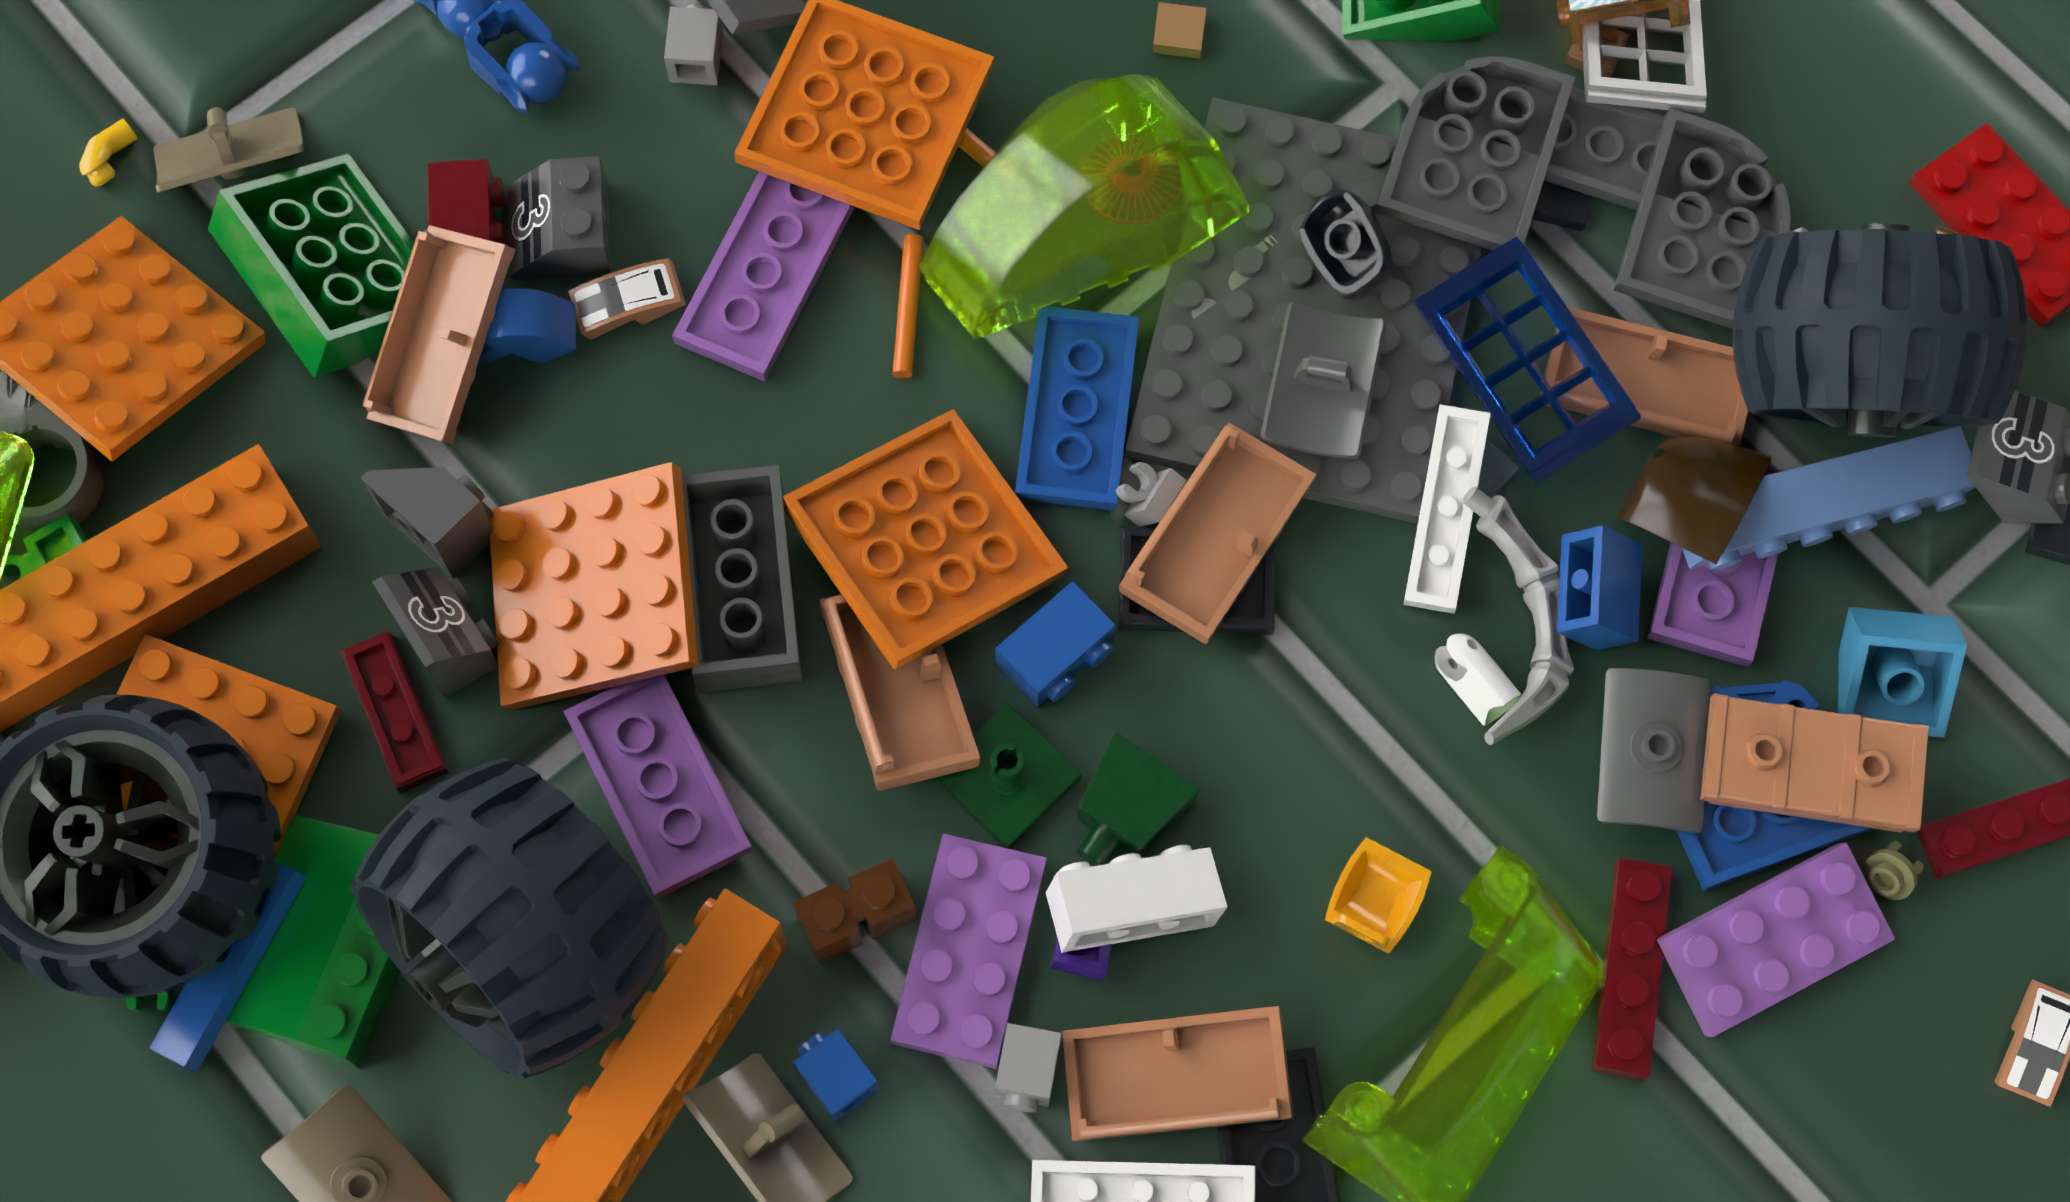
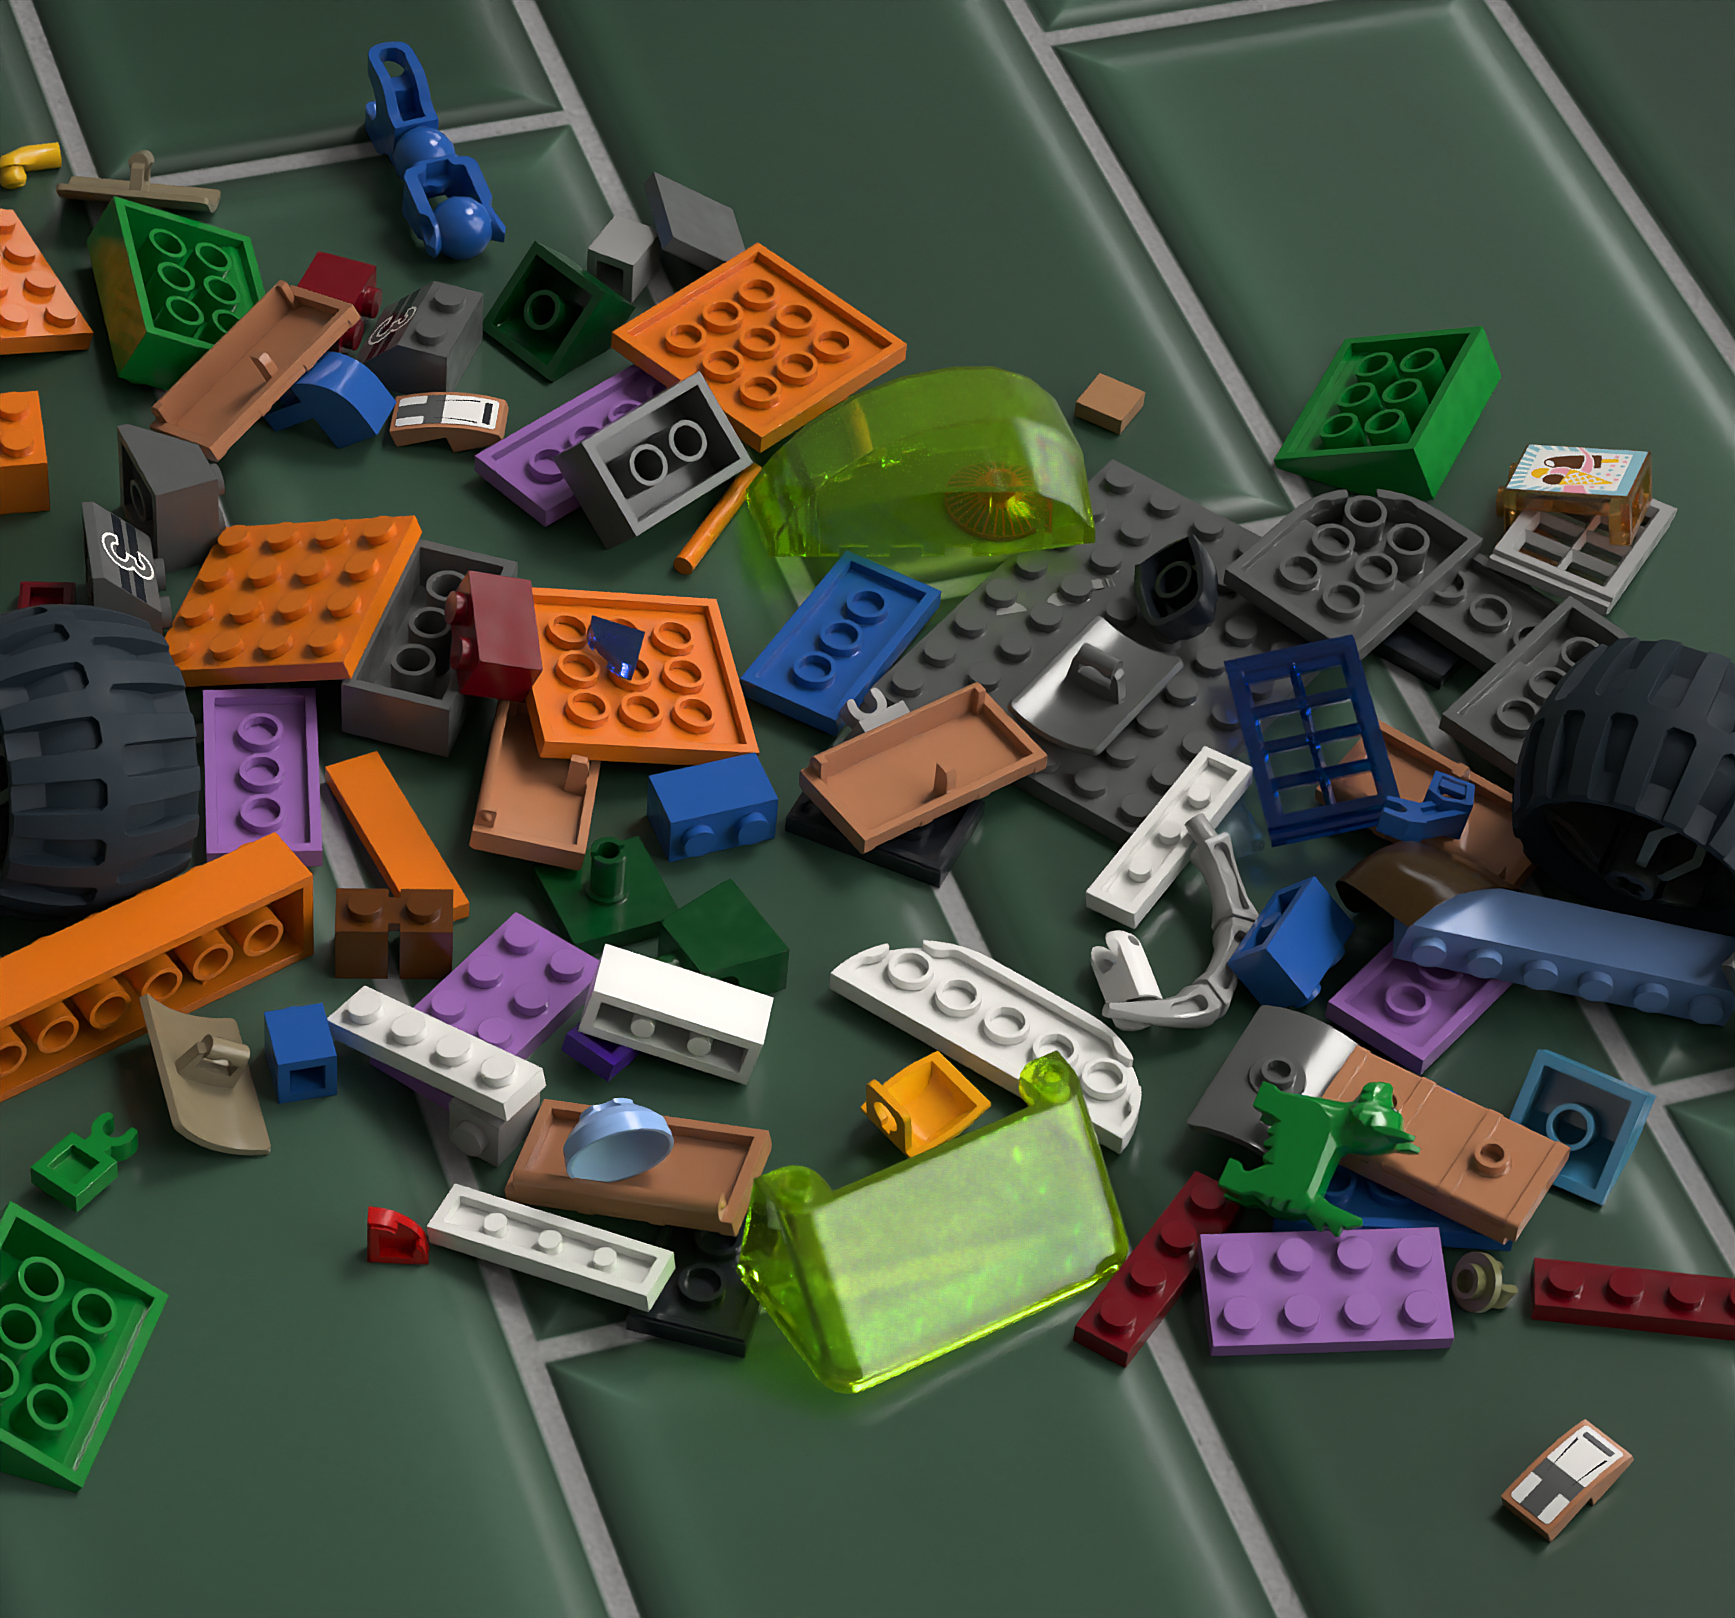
camera: 20 degrees right, 25 degrees down
(665, 136) = (555, 313): none -> dark green slope
(801, 793) = (391, 828): none -> orange tile
(805, 571) = (494, 636): none -> dark red brick
(836, 286) = (653, 460): none -> dark grey brick
(906, 520) = (616, 644): none -> clear blue tile
(959, 1040) = (436, 1053): none -> white plate
(1160, 1081) = (616, 1142): none -> light blue piece
(1402, 779) = (995, 1023): none -> white plate
(1663, 393) = (1432, 817): none -> blue piece
(1724, 827) = (1305, 1148): none -> green animal

